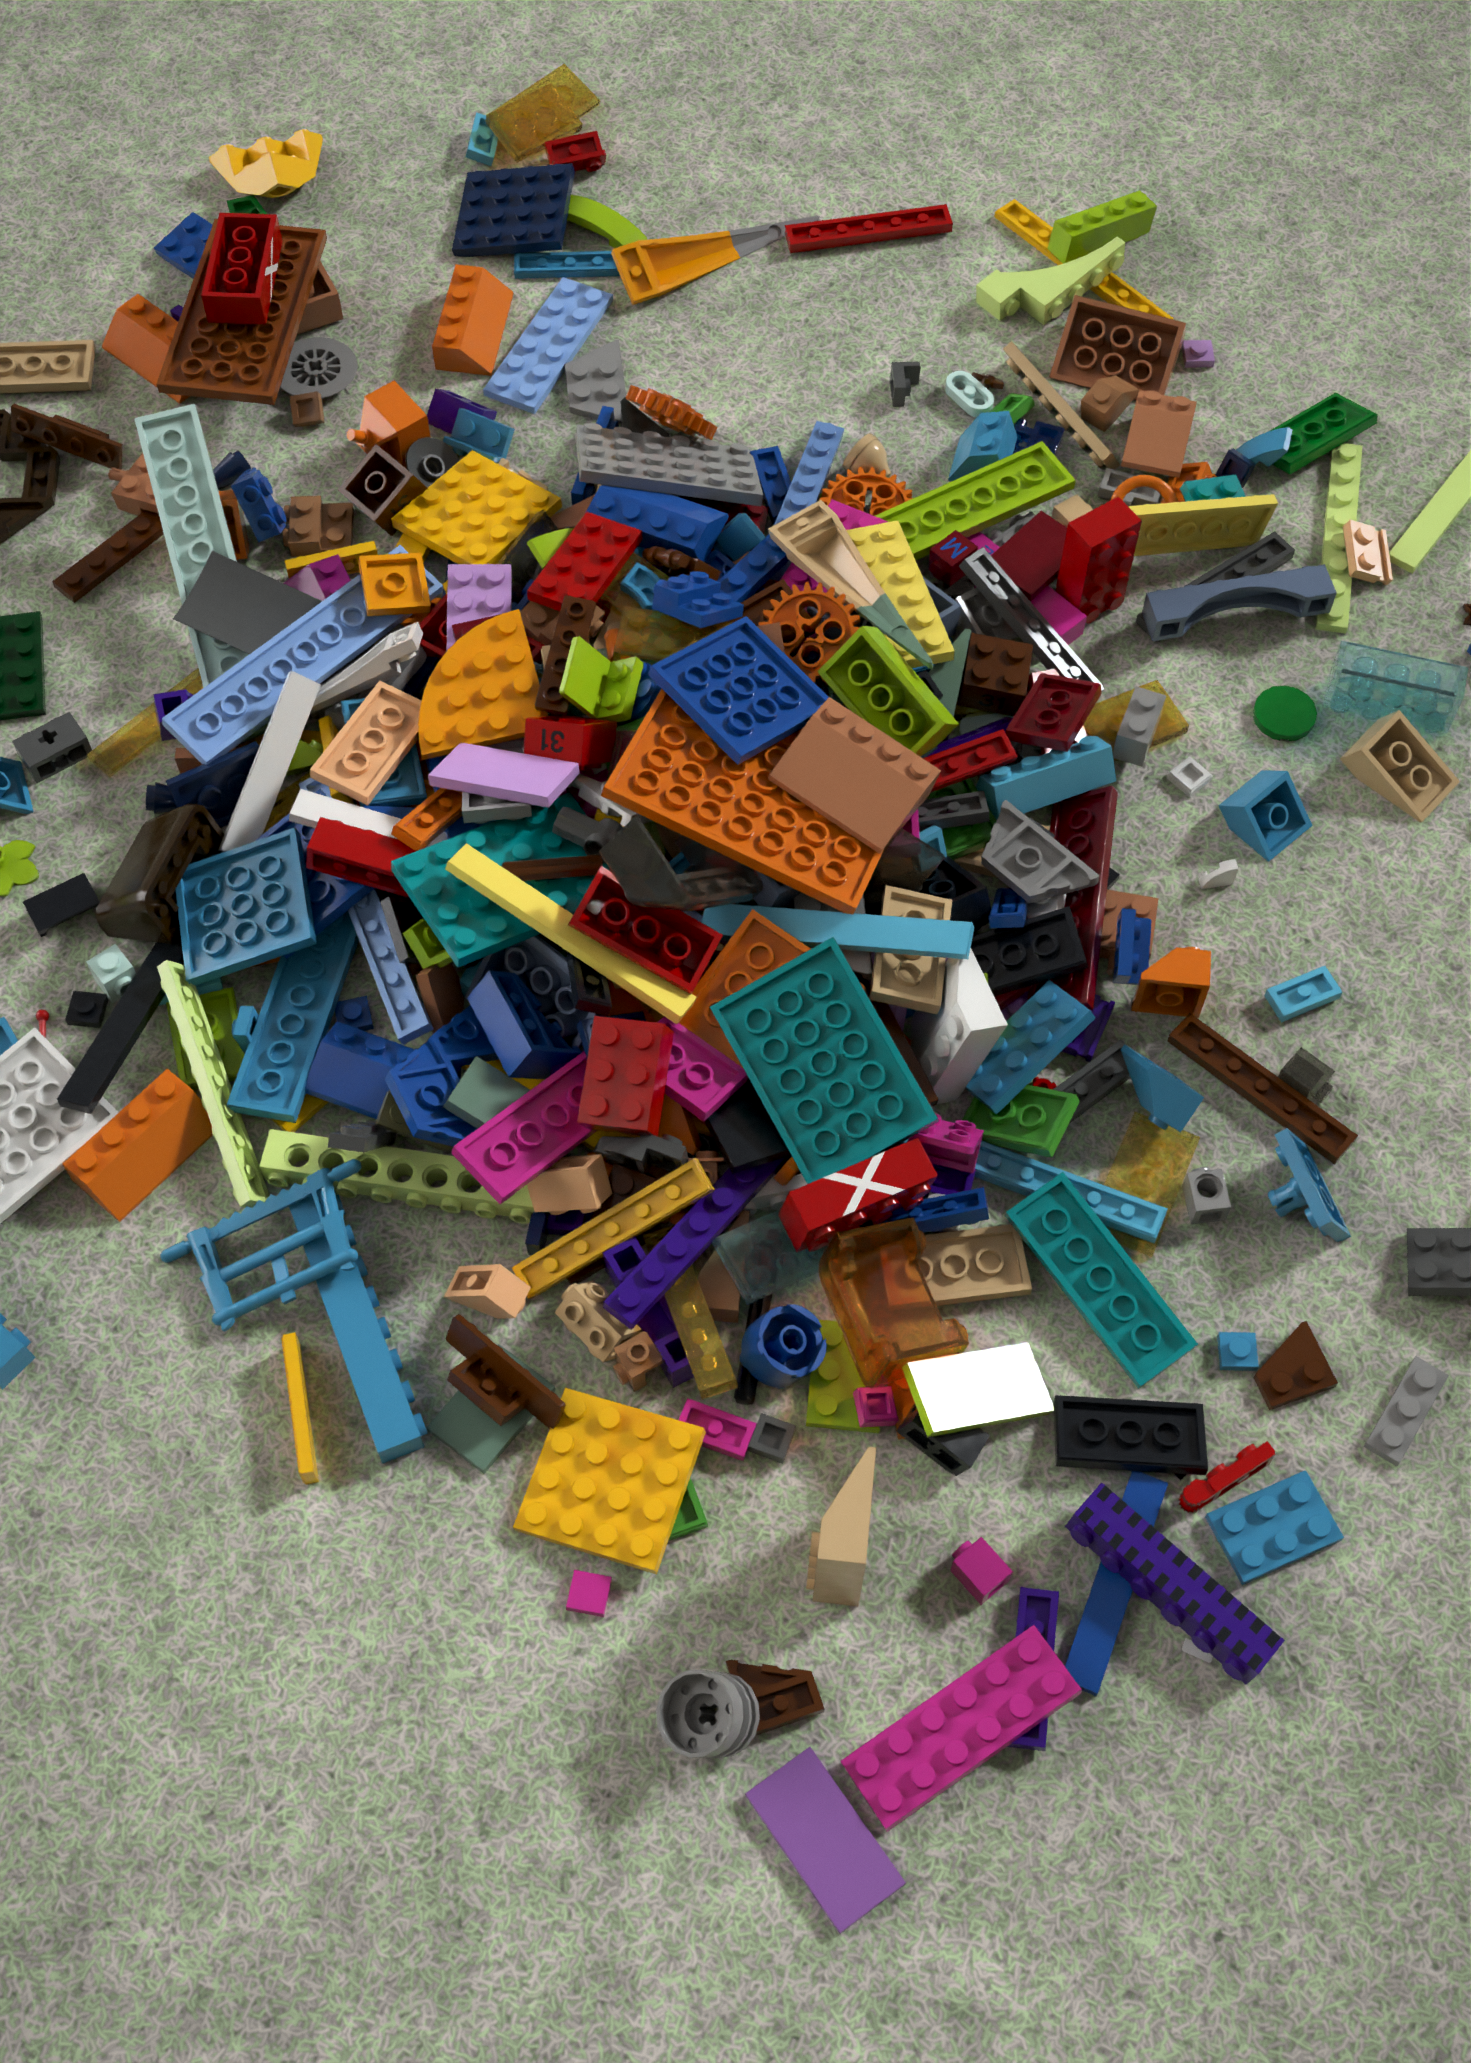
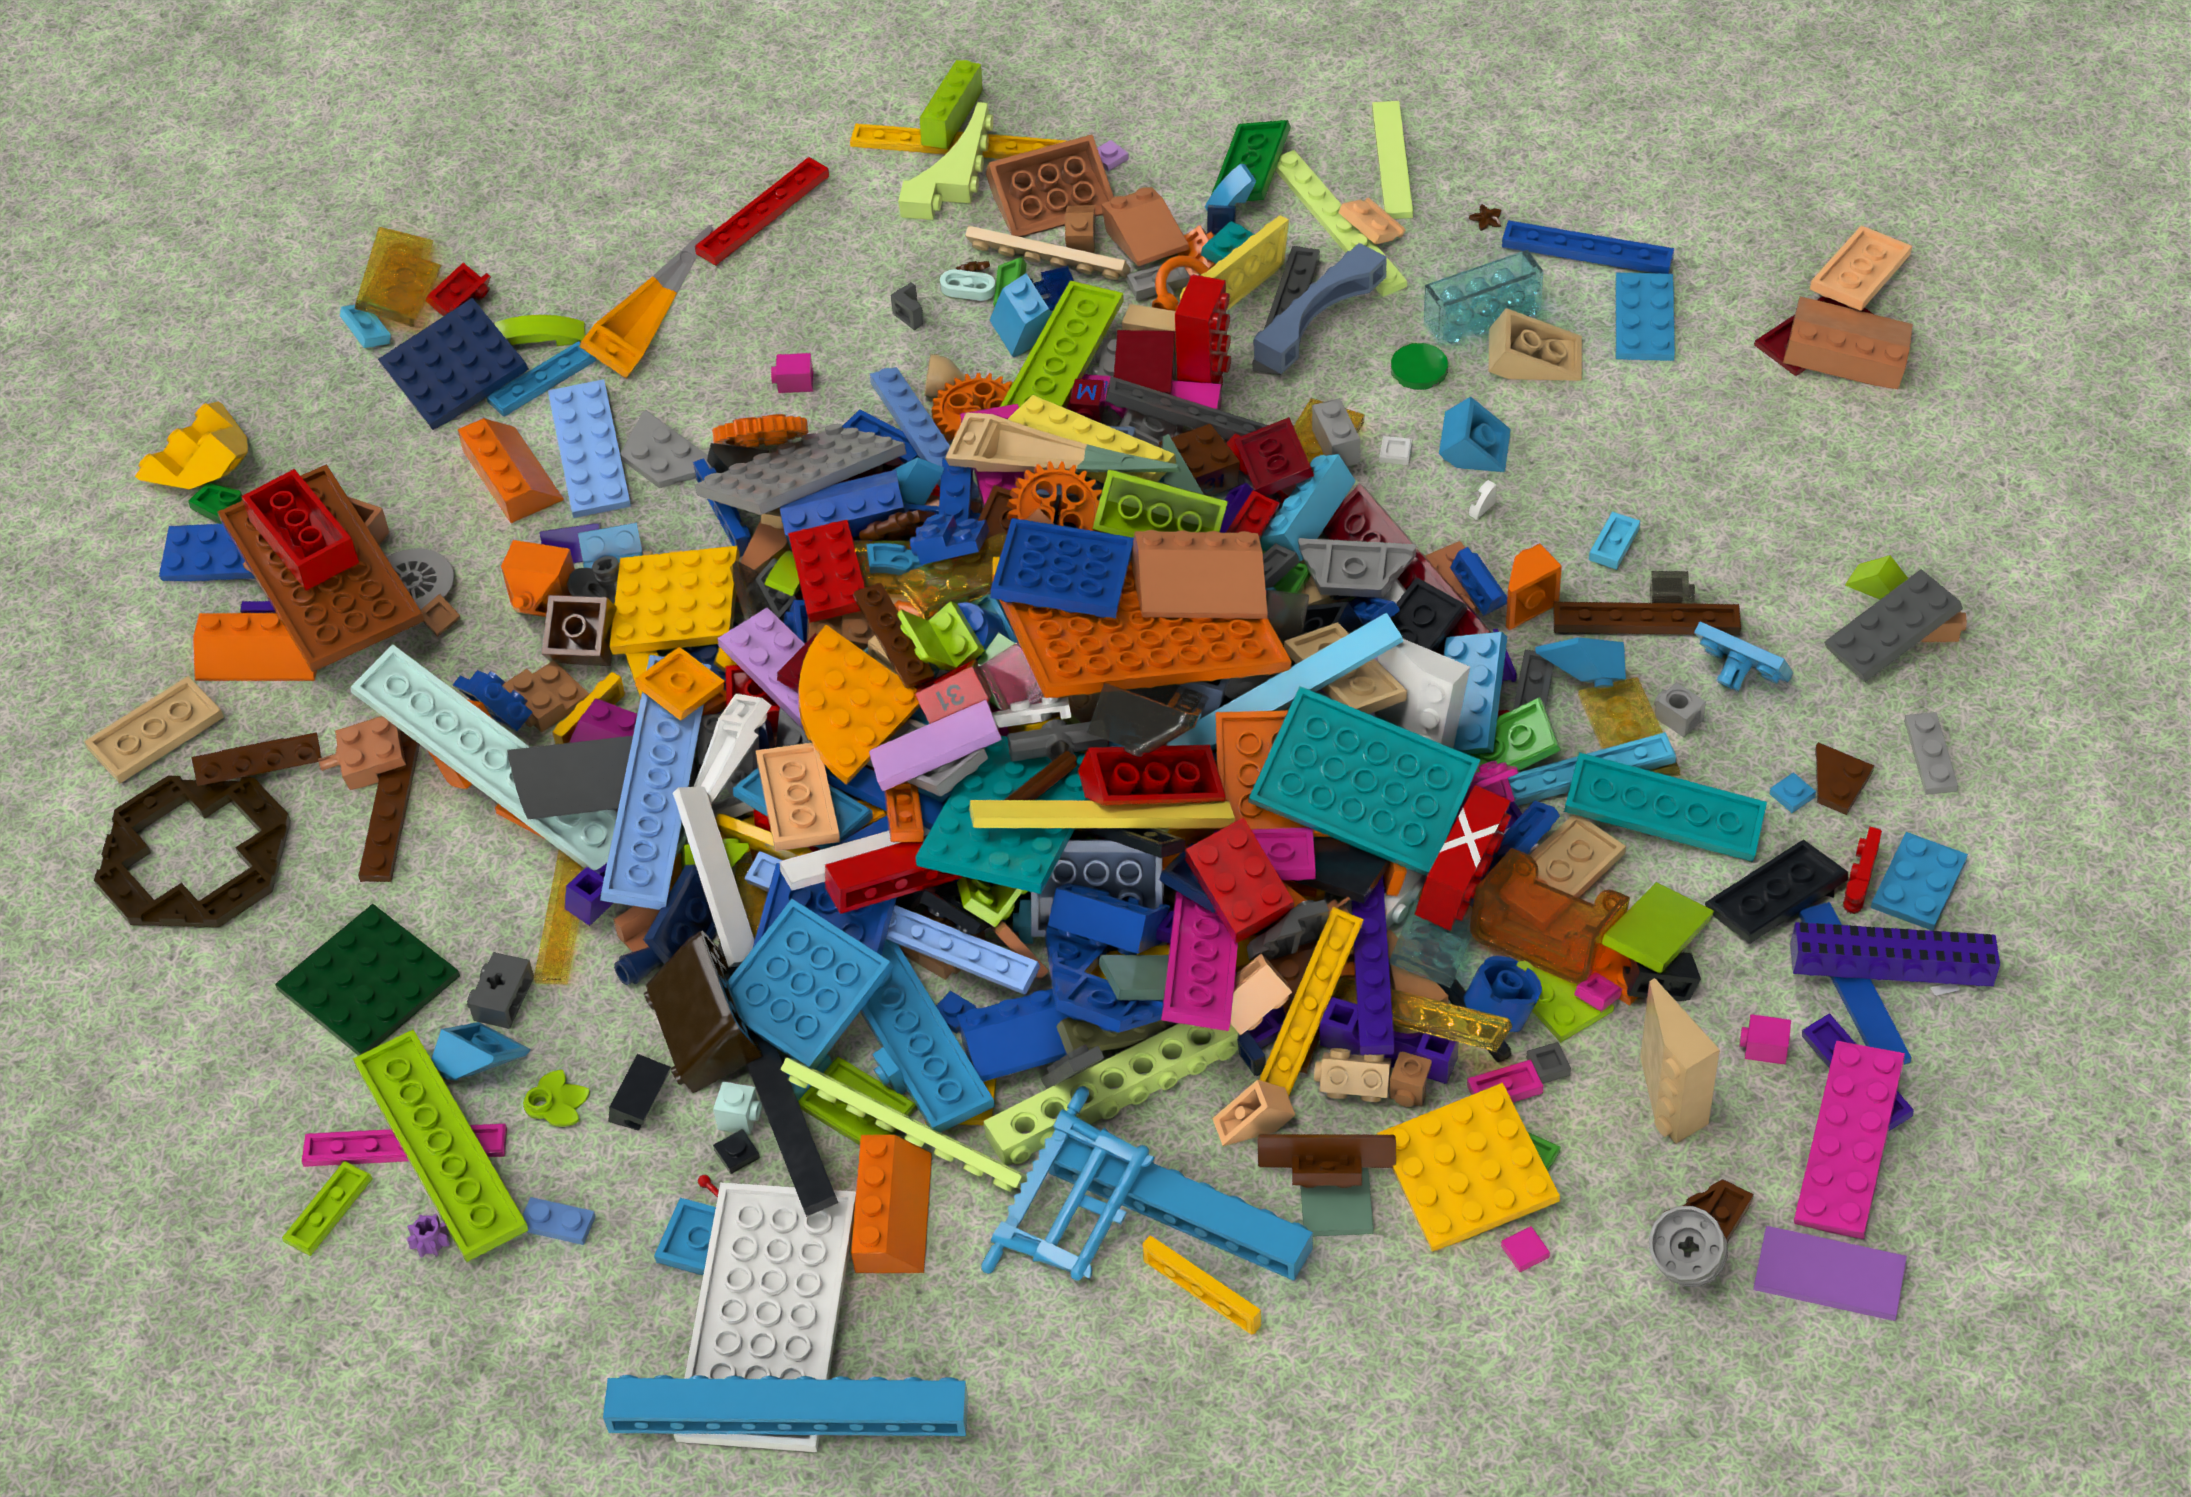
camera: 35 degrees left, 10 degrees down
(452, 452) = (606, 570): none -> dark grey bush
(758, 381) = (793, 373): none -> dark pink brick

